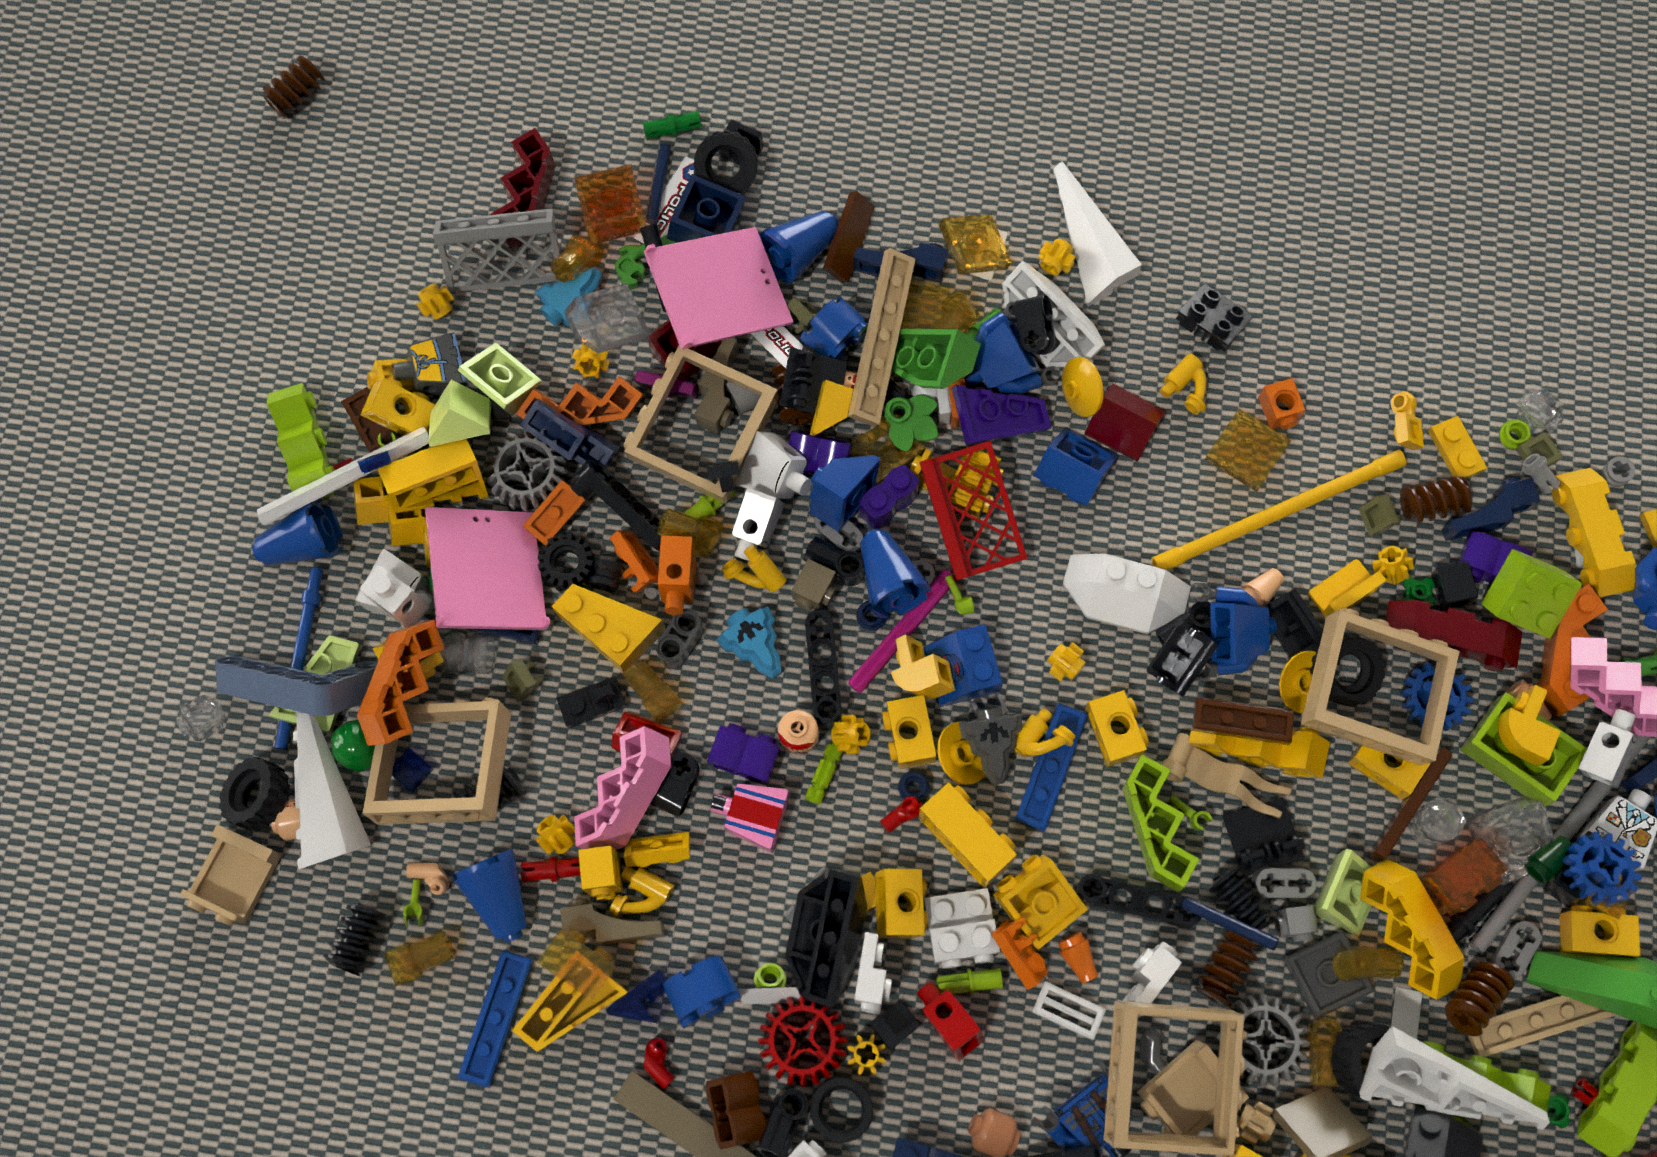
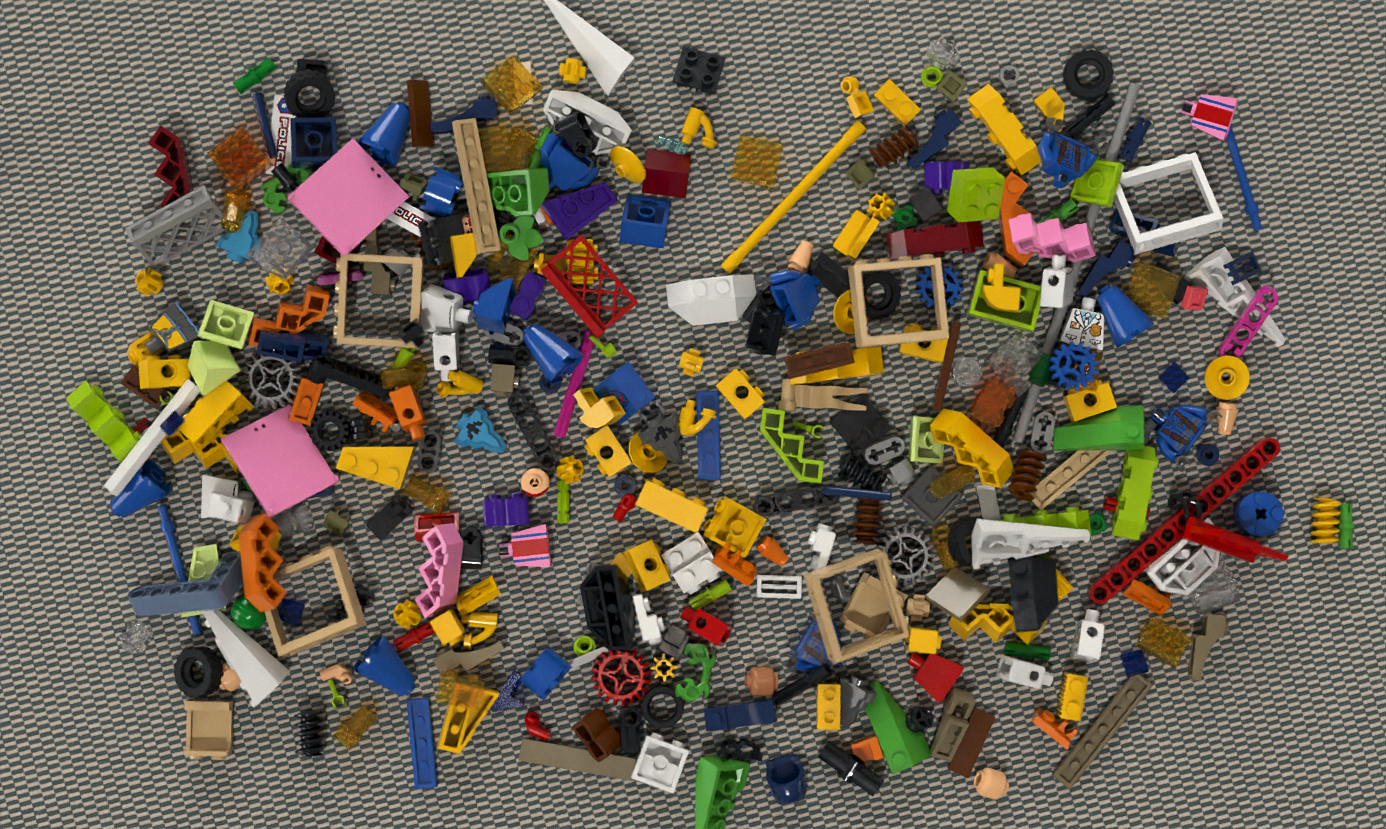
camera: 30 degrees left, 15 degrees up
(890, 1105) = (692, 692): none -> bright green helmet
(1148, 391) = (674, 145): none -> clear light blue piece
(1286, 393) = (768, 110): orange brick -> none
(1537, 468) = (951, 102): light grey pin -> none

